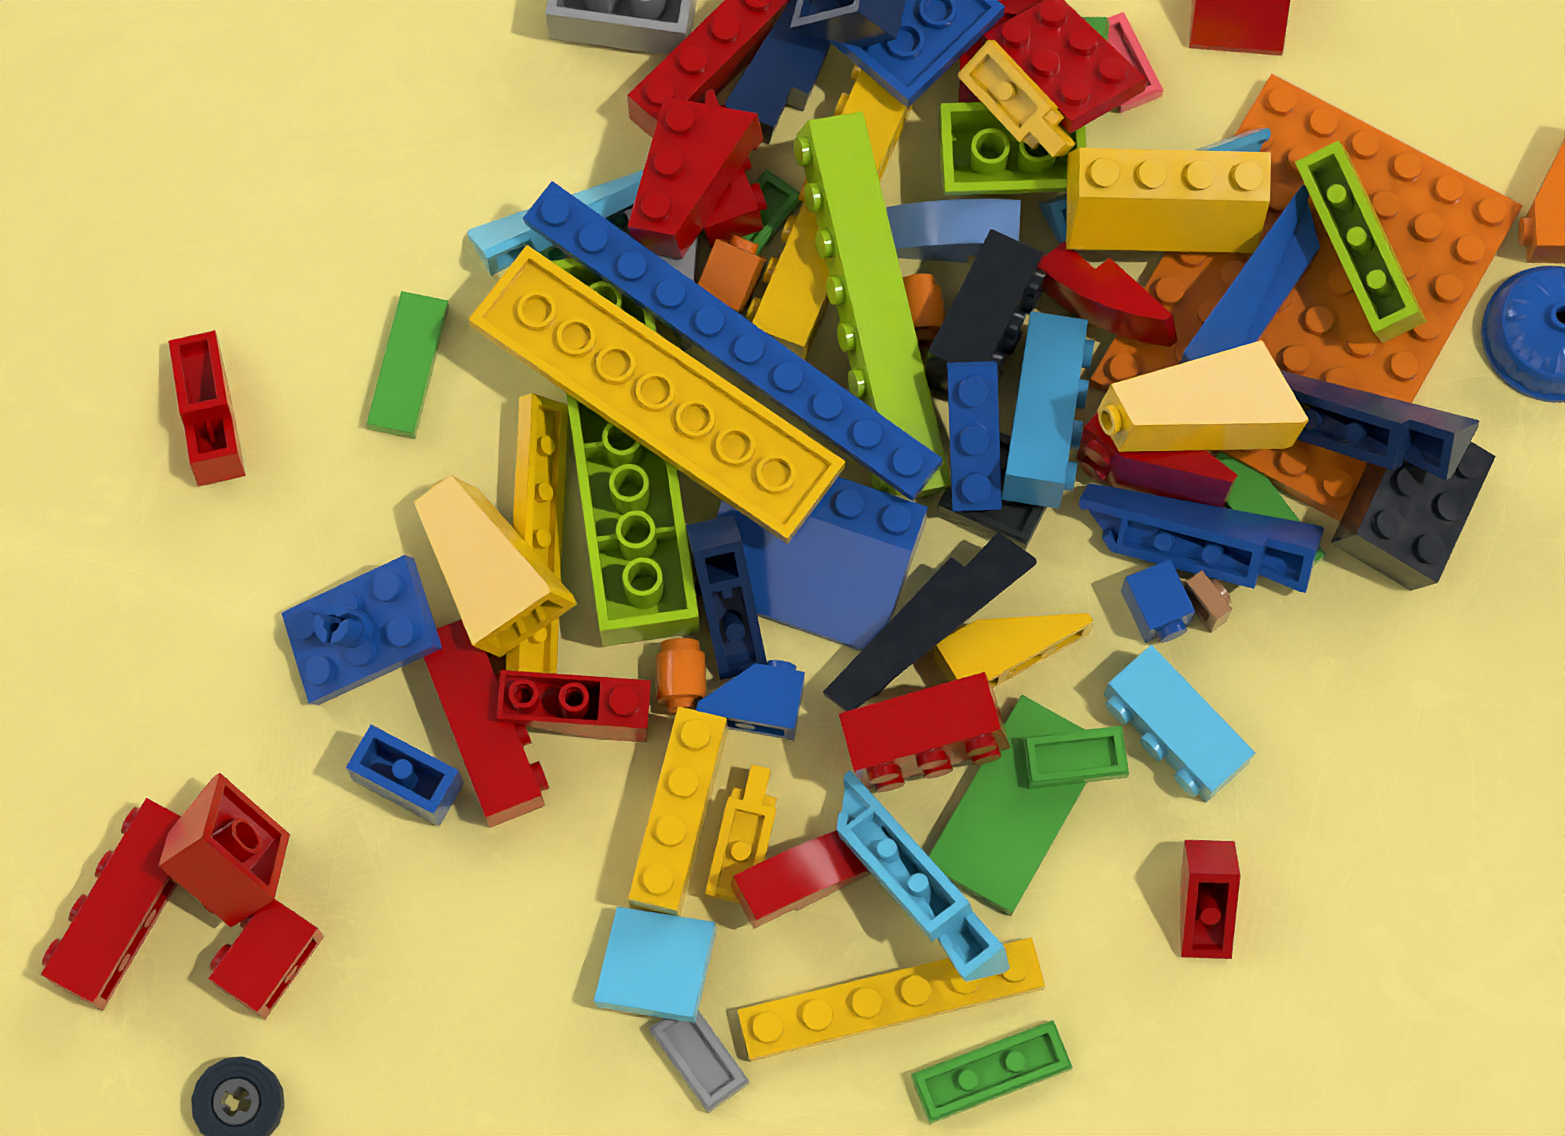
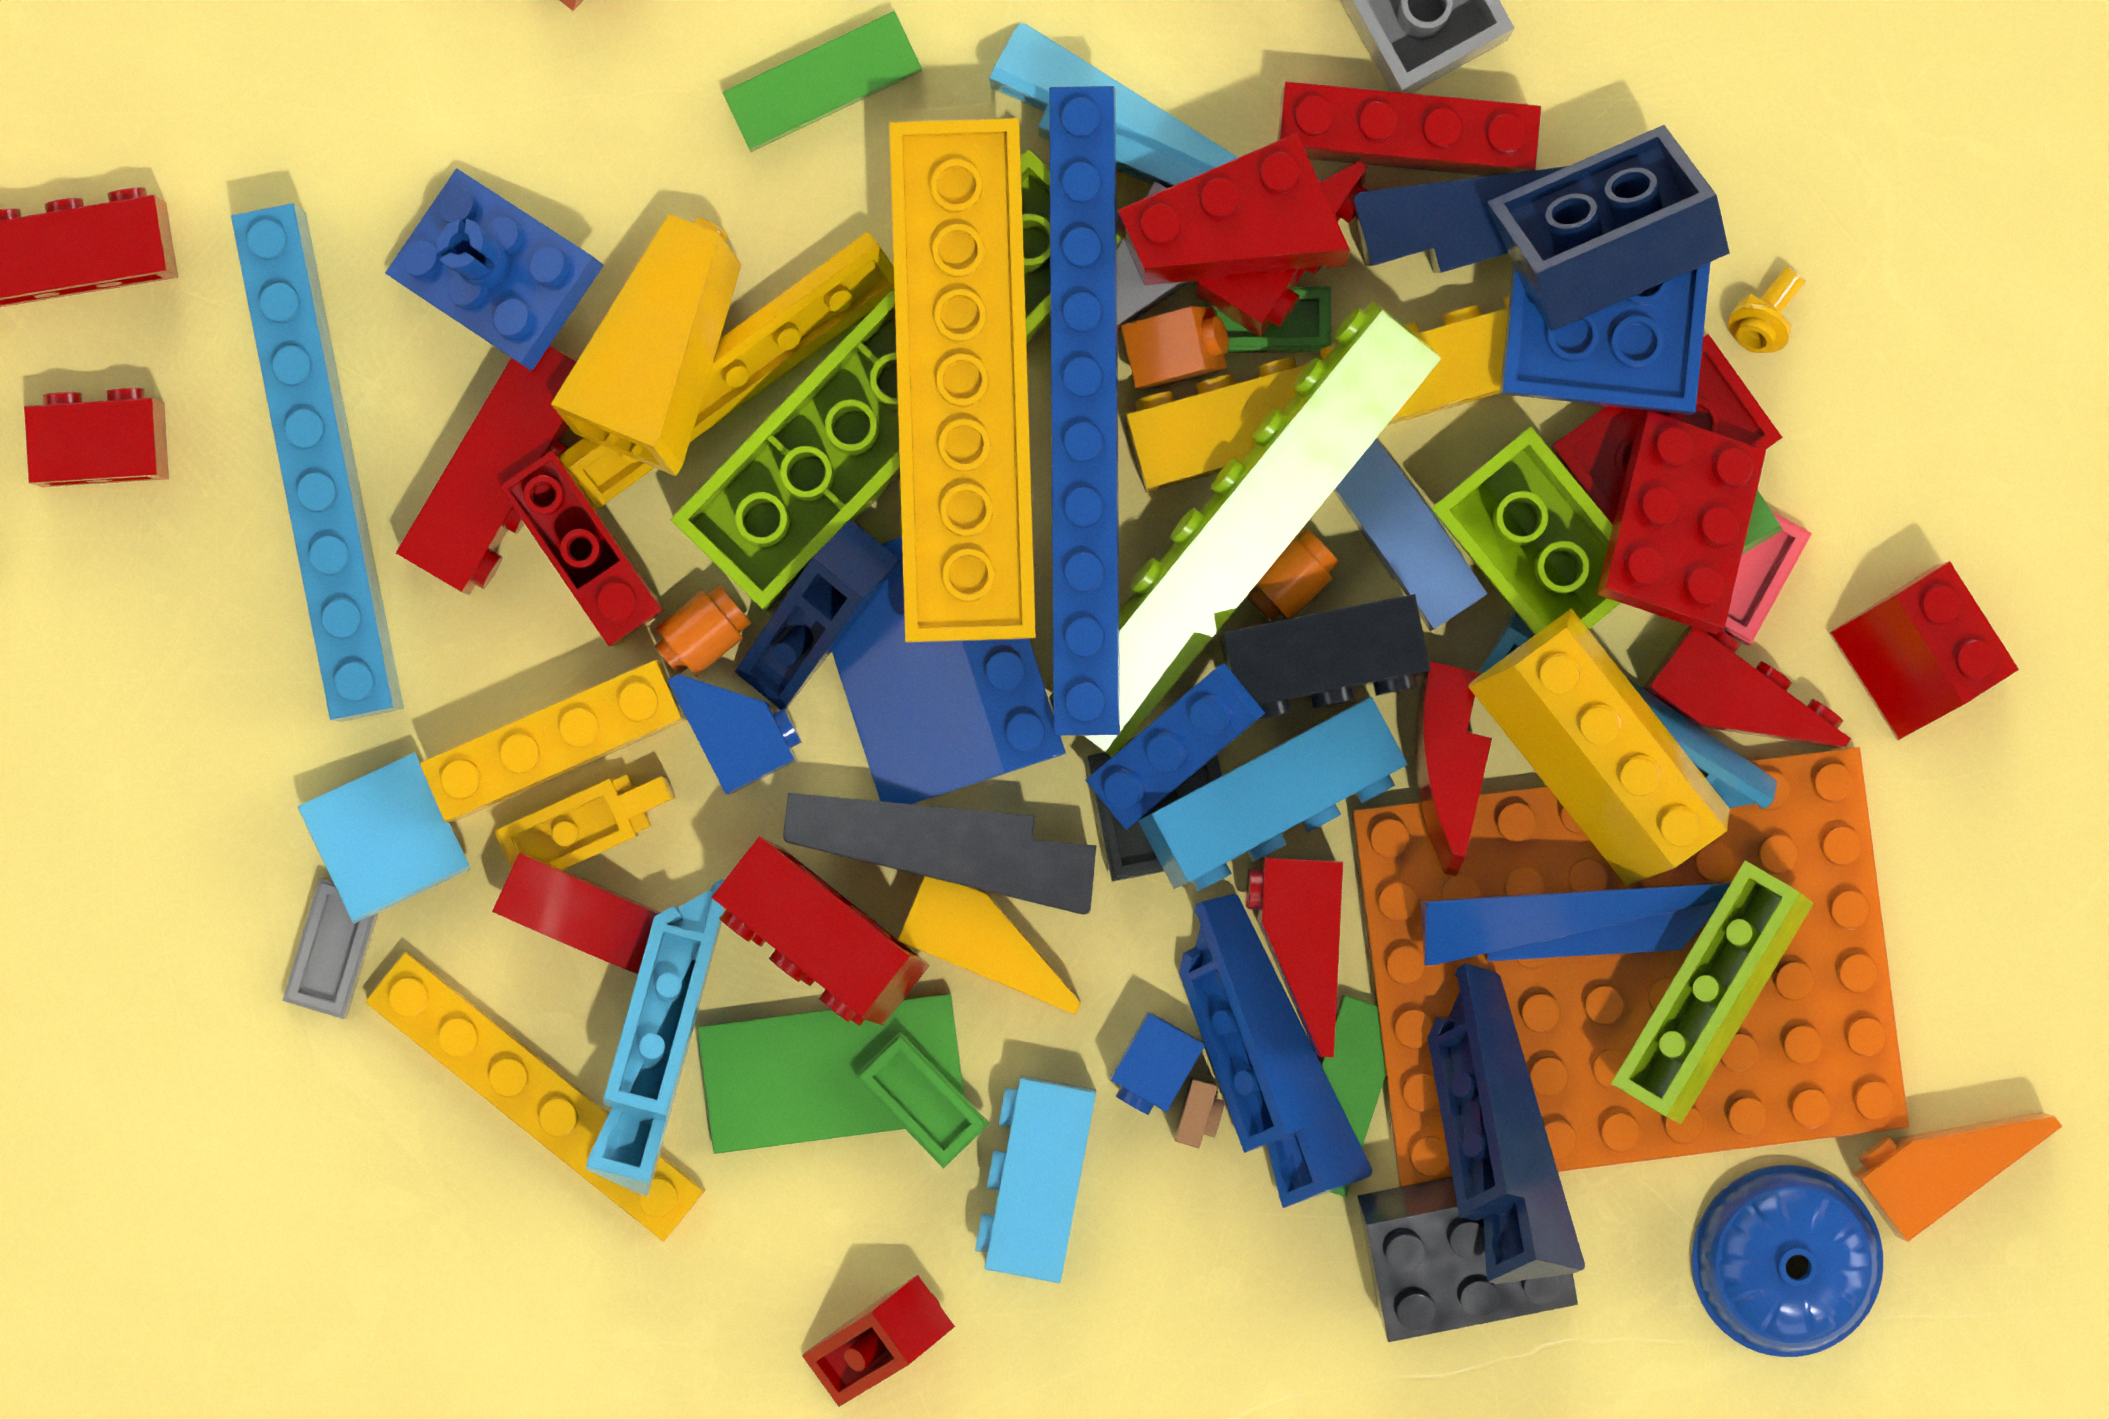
camera: 55 degrees right, 15 degrees up
(226, 852) = (161, 321): red slope -> none
(392, 829) = (317, 462): none -> dark azure brick
(405, 775) = (378, 435): blue brick -> none
(991, 1072) = (538, 1251): bright green tile -> none
(1015, 100) = (1587, 509): yellow hinge -> none
(1193, 112) = (1725, 693): none -> red slope
(1205, 404) = (1383, 971): yellow slope -> none

